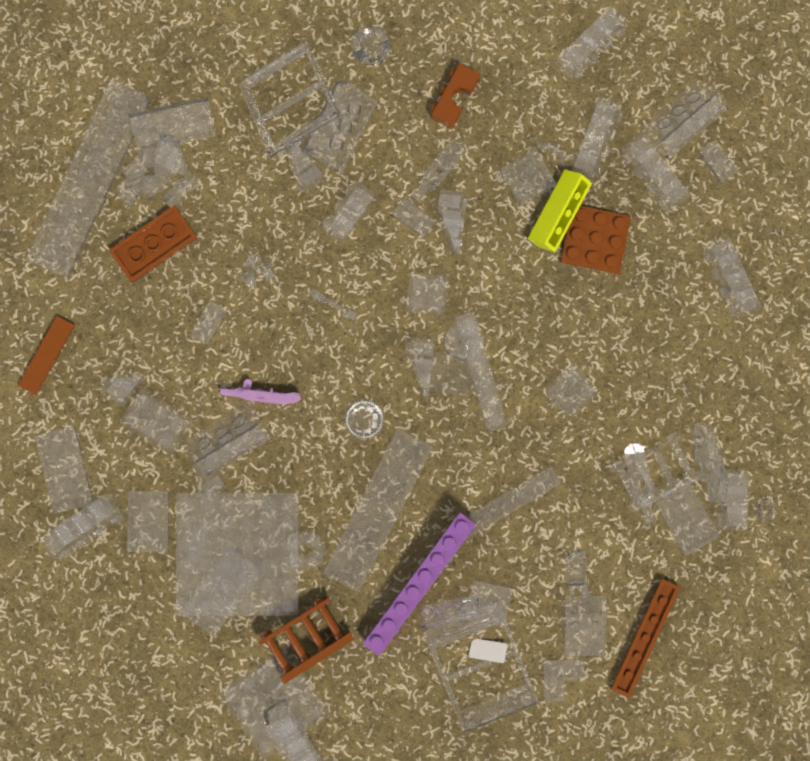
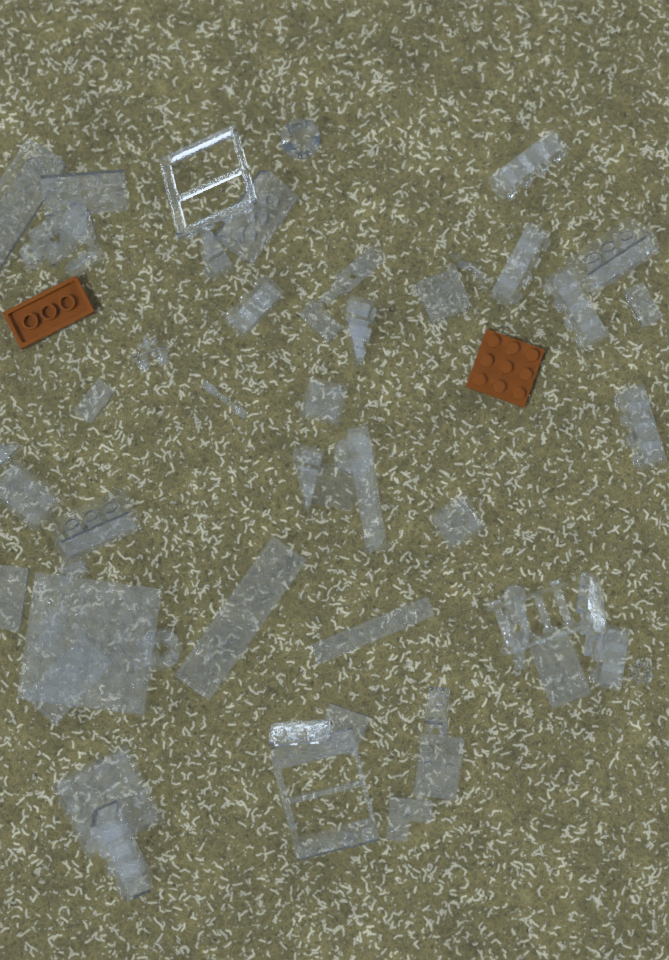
camera: 10 degrees right, 0 degrees up
(261, 395) = (136, 482): lavender piece -> none
(323, 649) = (145, 763): dark orange fence -> none
(364, 419) = (240, 522): clear dish -> none
(419, 583) = (273, 699): medium lavender brick -> none
(462, 80) = (390, 187): dark orange arch -> none
(488, 650) = (335, 778): white sticker -> none
(560, 210) = (471, 334): neon yellow brick -> none
(645, 638) = (499, 788): dark orange plate -> none

